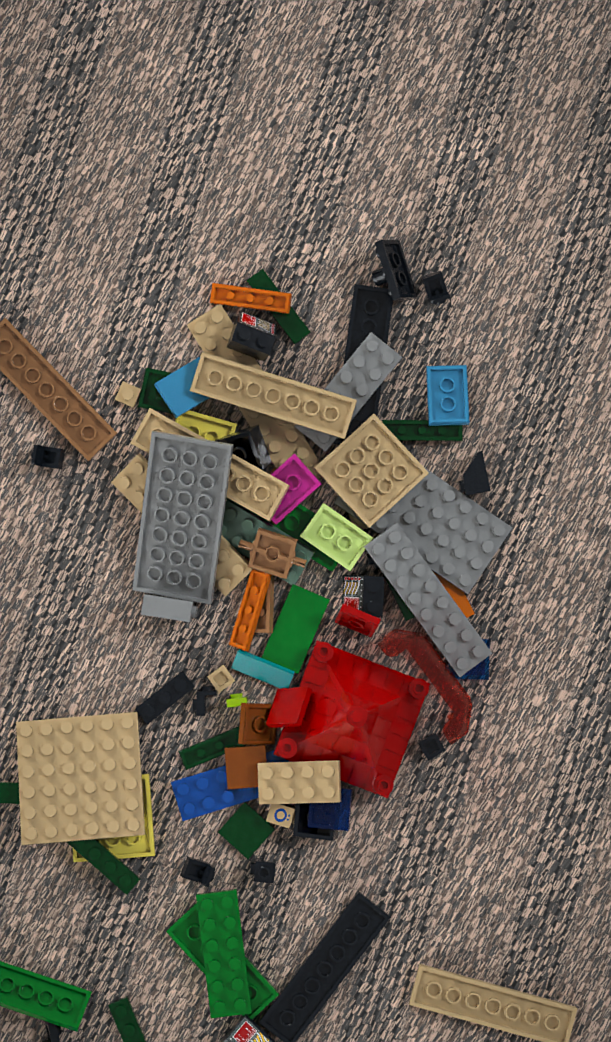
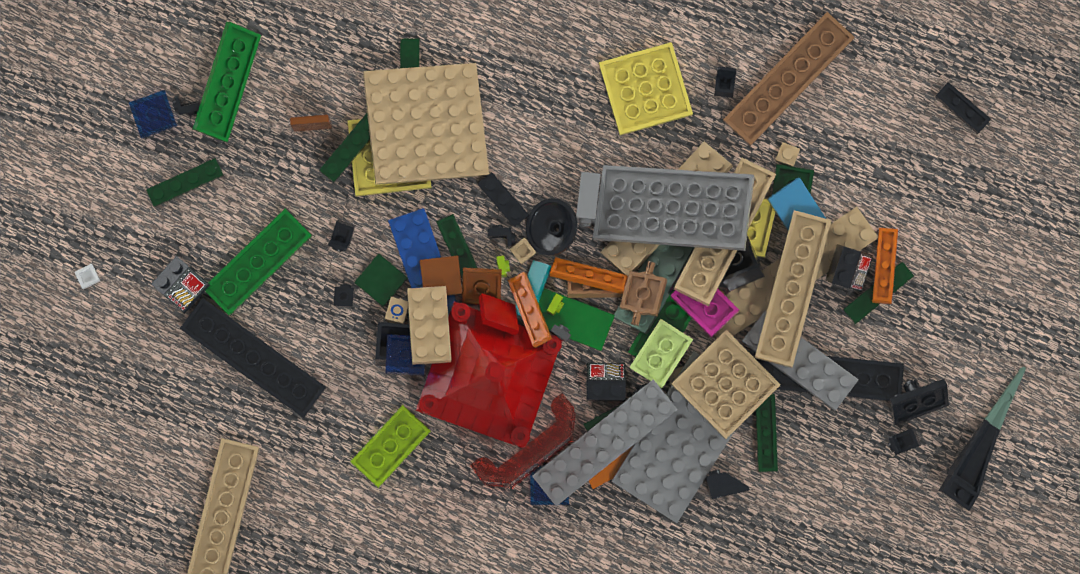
camera: 90 degrees right, 5 degrees down
(51, 541) = (645, 88): none -> light yellow plate
(75, 903) = (309, 123): none -> dark orange tile
(85, 208) = (962, 108): none -> black plate
(197, 656) = (542, 226): none -> black dish
(223, 953) = (266, 262): green plate -> none
(281, 646) = (556, 305): none -> lime plate
(284, 674) = (529, 309): none -> orange tile
(309, 641) = (561, 332): none -> dark grey plate
(357, 620) = (582, 376): red tile -> none
(422, 824) = (390, 446): none -> lime tile
(431, 746) = (465, 452): black plate -> none
(447, 395) = (801, 456): dark azure tile -> none
(466, 222) = (969, 469): none -> black plate

